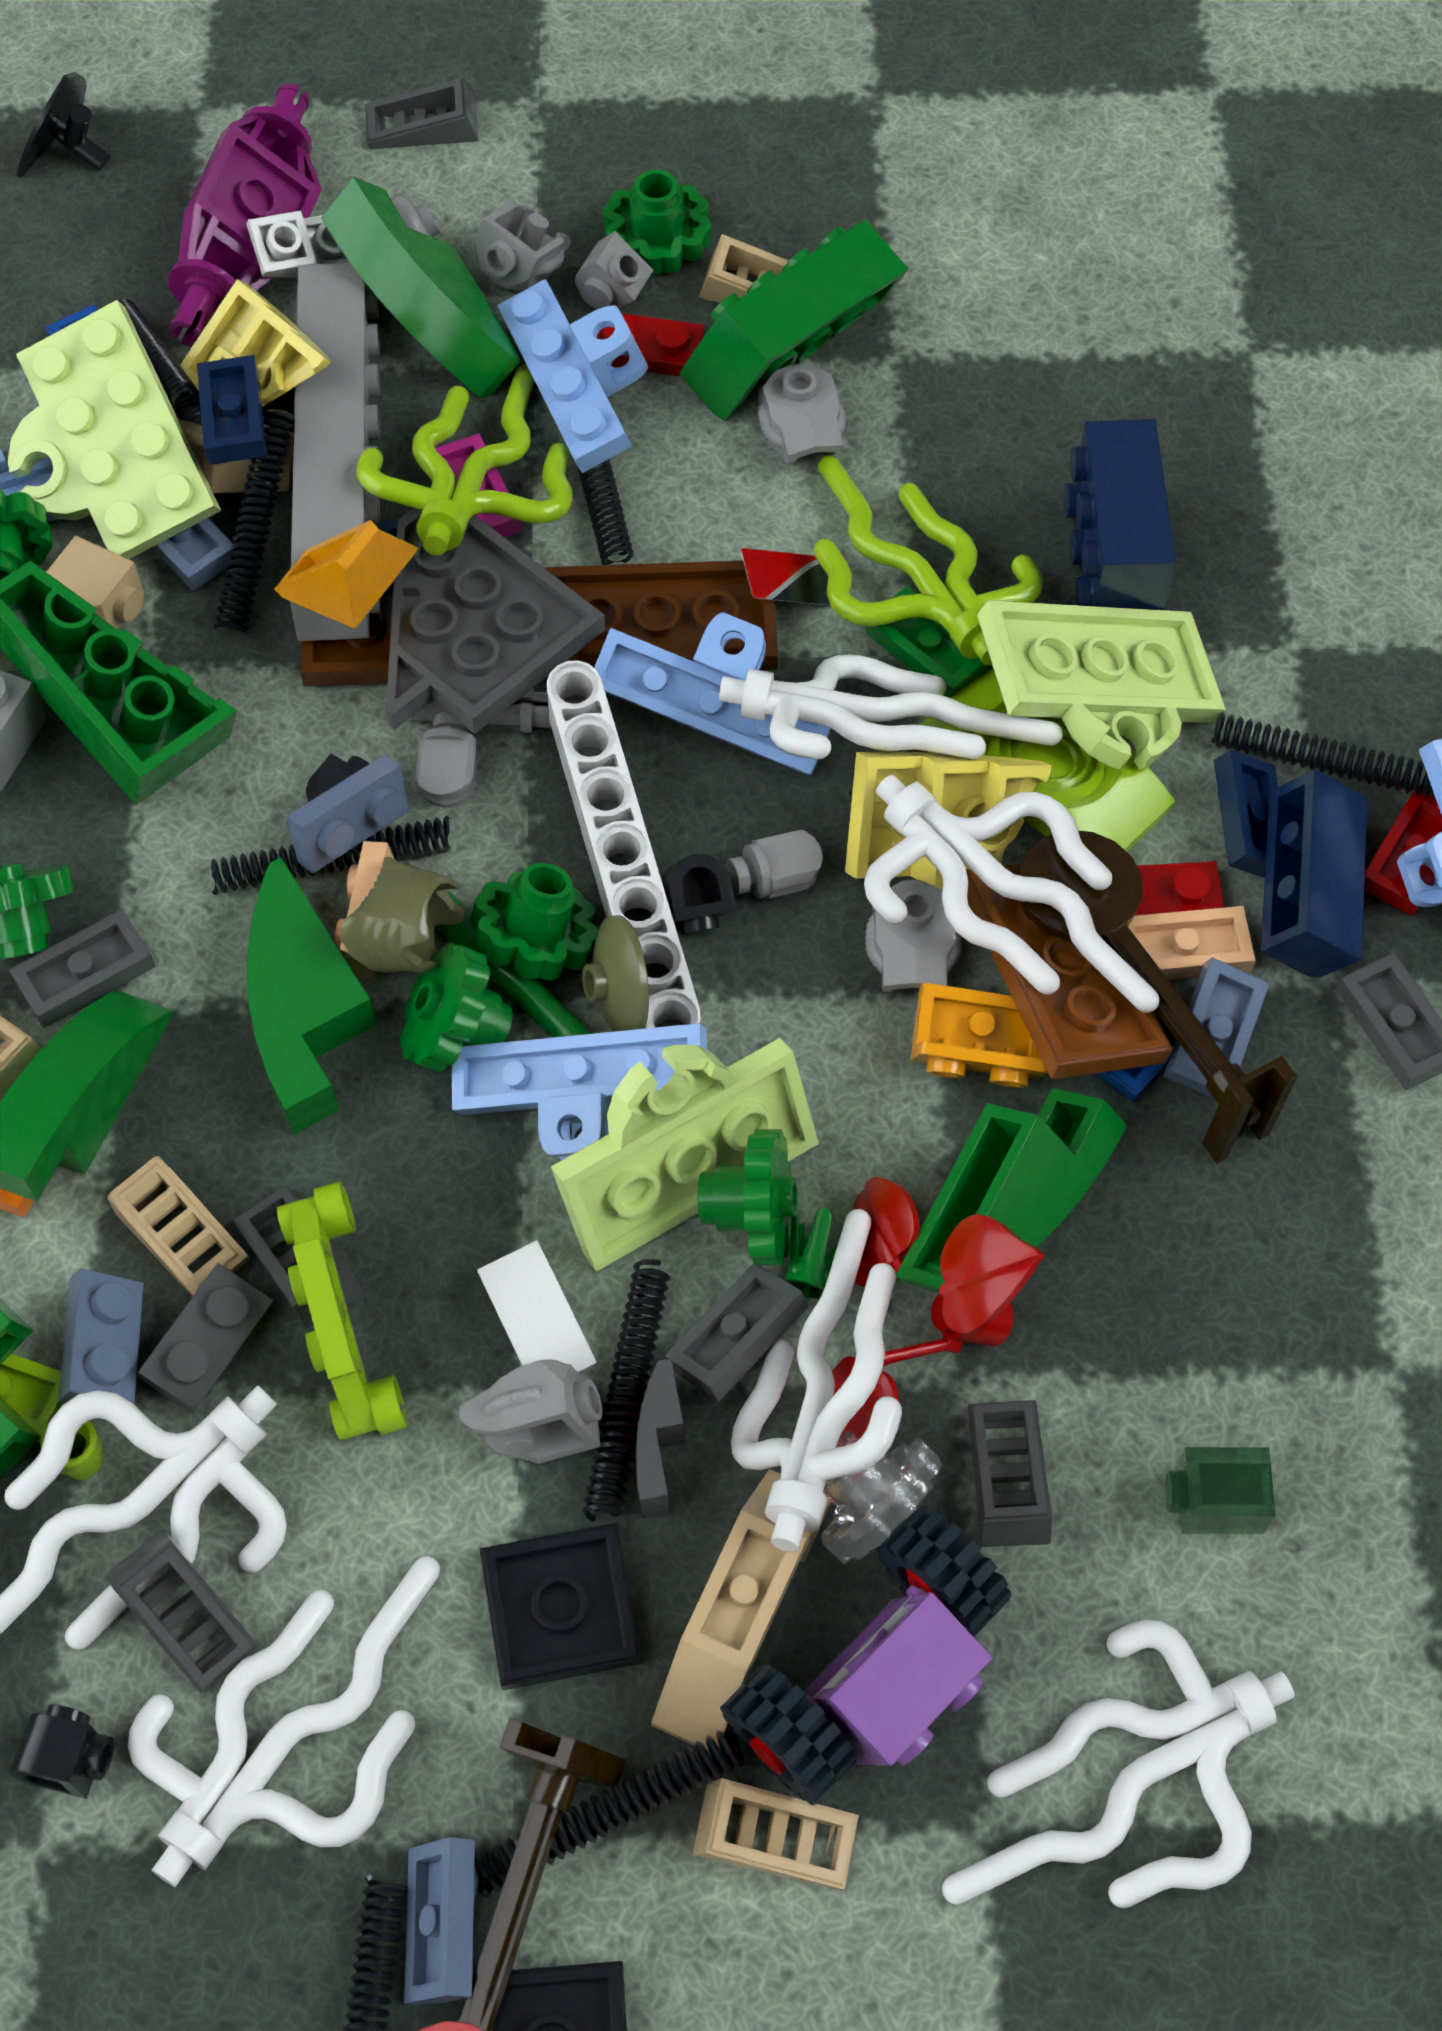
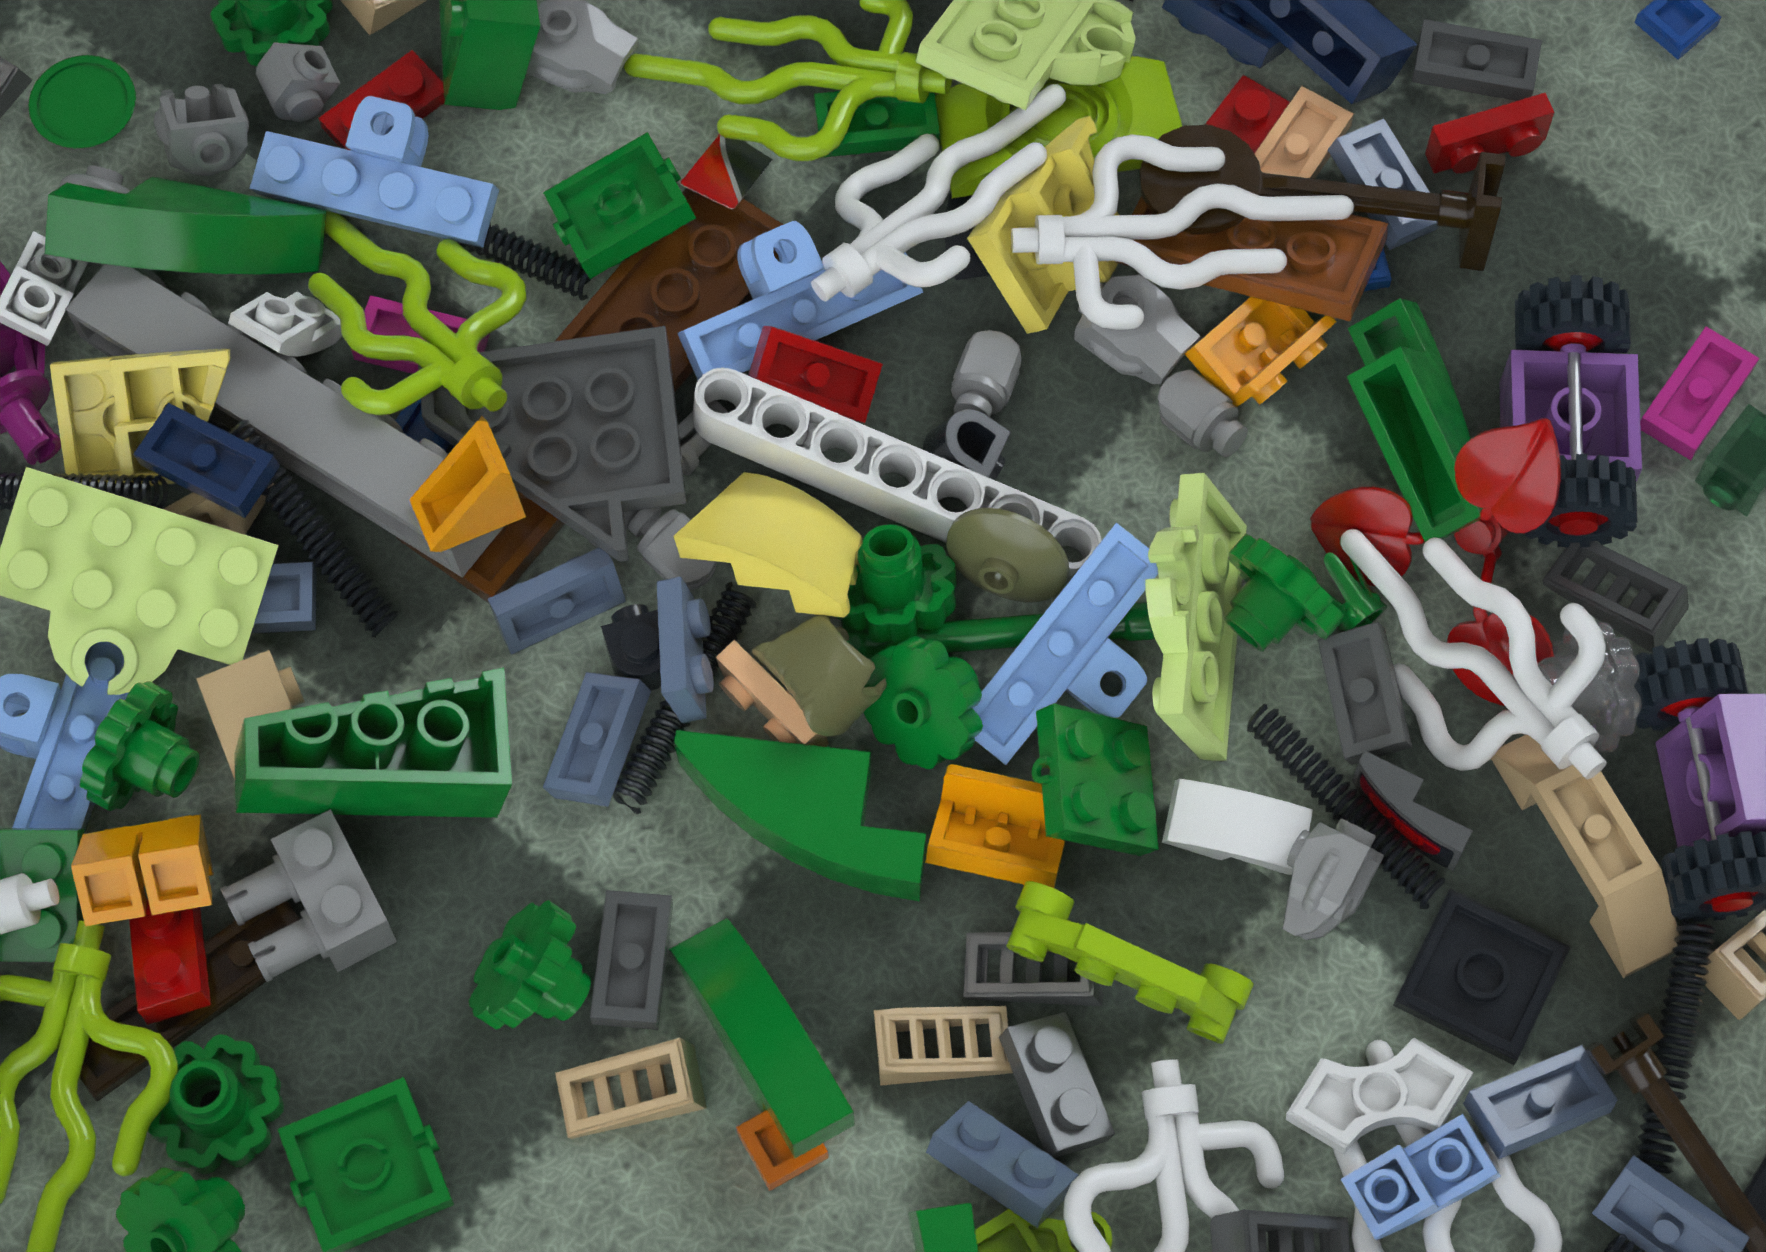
camera: 50 degrees left, 5 degrees up
(240, 820) = (597, 739): none -> sand blue plate
(322, 1674) = (1420, 1178): none -> light blue slope
(333, 714) = (557, 600): none -> sand blue plate
(390, 1143) = (993, 828): none -> light orange bracket
(392, 394) = (288, 325): none -> white slope
(399, 1609) = (1409, 1089): none -> white tile
(464, 1727) = (1540, 1102): none -> sand blue plate
(477, 1175) = (1096, 780): none -> green plate
(480, 173) = (82, 101): none -> green piece
(493, 814) = (777, 542): none -> light yellow slope
(663, 745) = (816, 372): none -> red plate
(689, 527) = (619, 205): none -> green plate
(882, 1037) = (1200, 414): none -> light grey arm
(1124, 1310) = (1577, 378): none -> brick
(1255, 1407) = (1698, 393): none -> dark pink plate
(1358, 1085) = (1506, 128): none -> red plate

